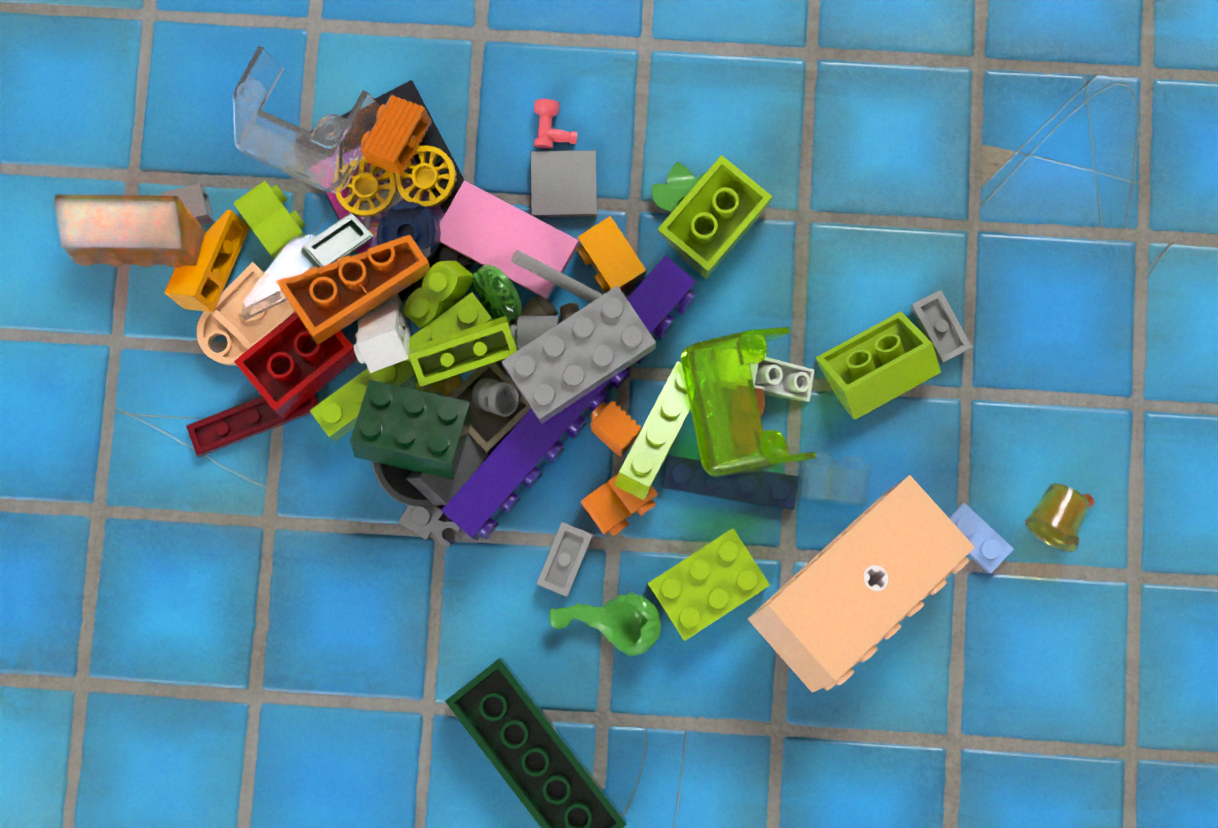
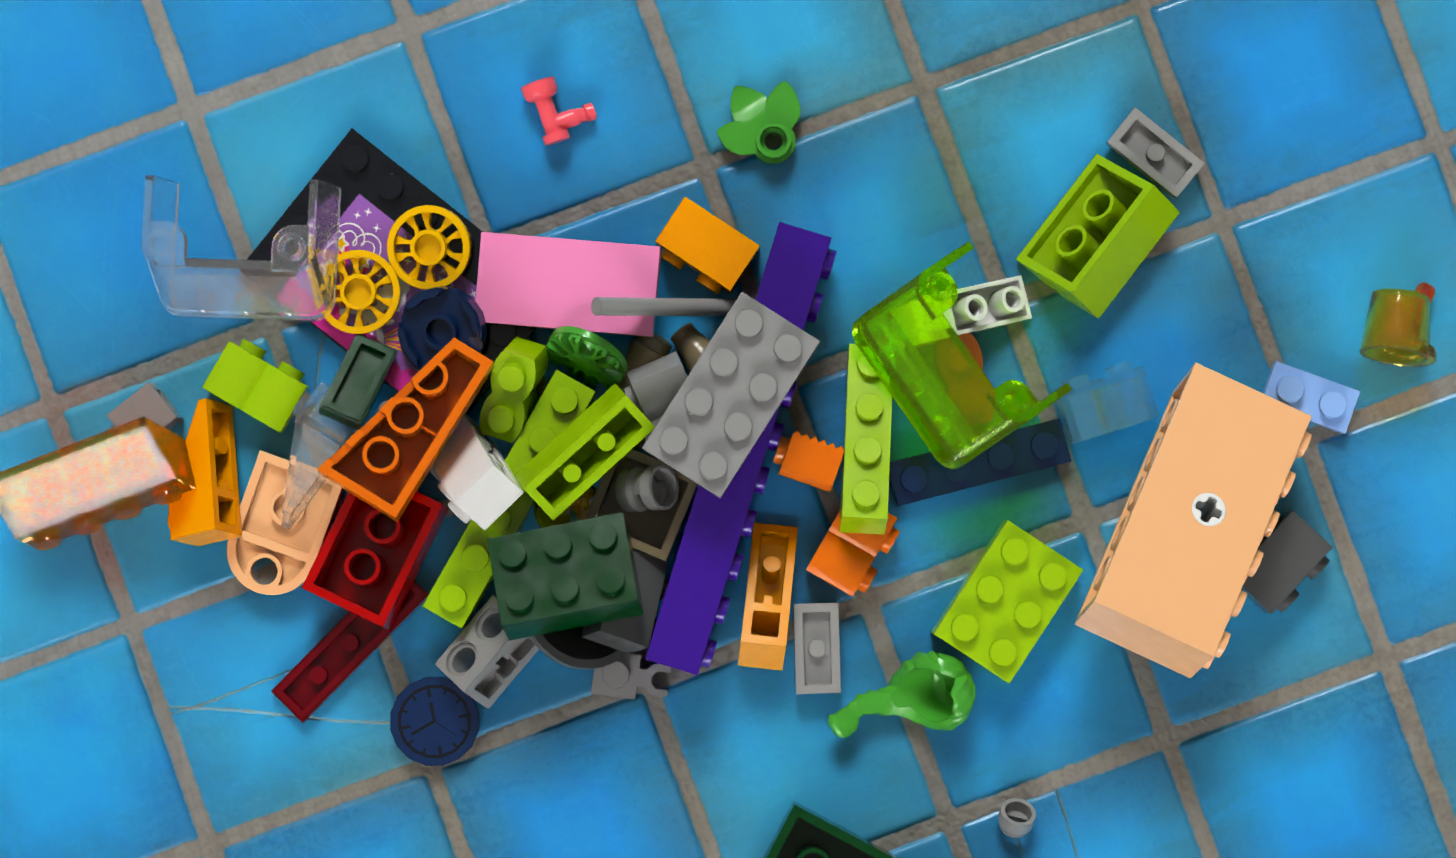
camera: 30 degrees left, 5 degrees up
(285, 494) = (434, 721): none -> dark blue tile
(335, 468) = (483, 657): none -> light grey brick
(395, 134) = (369, 213): orange brick -> none
(546, 510) = (768, 596): none -> light orange slope
(563, 184) = (604, 177): light grey tile -> none
(649, 737) = (1016, 817): none -> light grey hinge
(714, 216) = (814, 139): lime slope -> none
(916, 640) = (1288, 557): none -> dark grey brick

